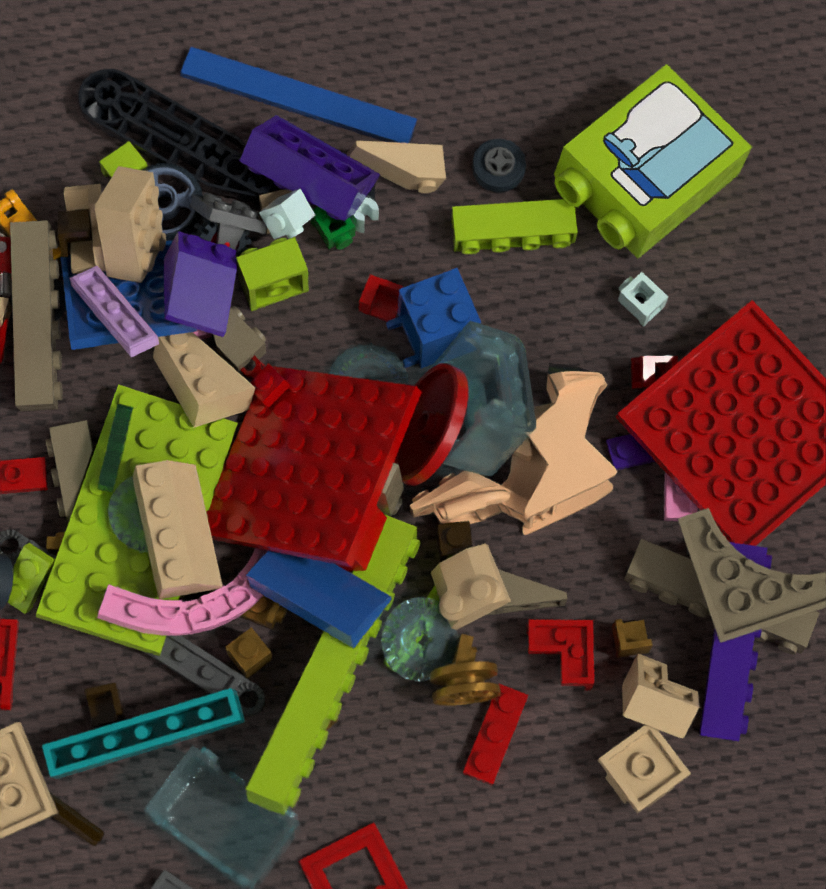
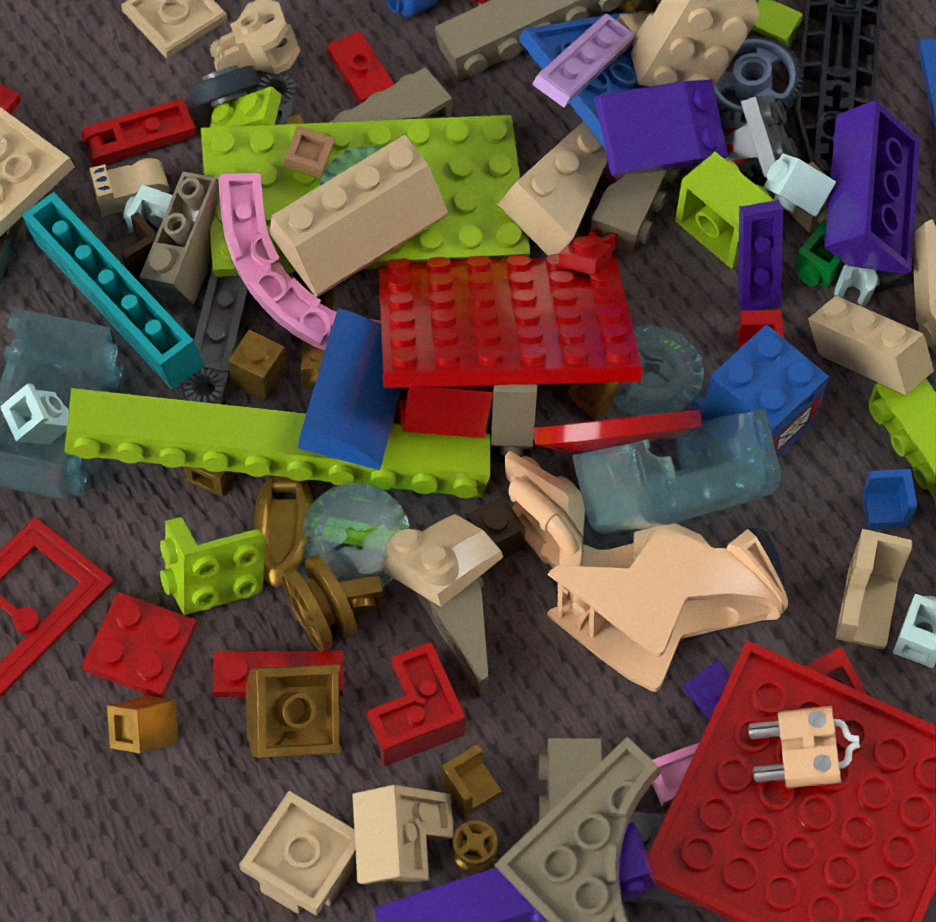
camera: 70 degrees right, 10 degrees down
(45, 689) = (119, 184): none -> tan leg
(80, 672) = (150, 204): none -> light aqua bracket
(99, 542) = (309, 151): none -> medium nougat plate
(115, 448) = (430, 126): clear green beam -> none
(122, 663) = (182, 244): none -> dark tan slope
(224, 821) = (45, 409): none -> light aqua brick
(328, 267) = (760, 255): none -> dark purple plate
(390, 691) = (282, 525): none -> pearl gold piece
(408, 764) = (211, 571): none -> lime bracket
(427, 228) = (871, 344): none -> tan brick
(433, 822) = (139, 645): none -> red plate
(498, 841) = (142, 723): none -> pearl gold panel
(535, 734) = (293, 710): none -> pearl gold slope
(540, 274) = (889, 499): none -> blue panel
(601, 321) = (872, 588): none -> tan panel
(679, 648) = (478, 838): none -> pearl gold wheel
(711, 410) = (807, 747): none -> light nougat piece

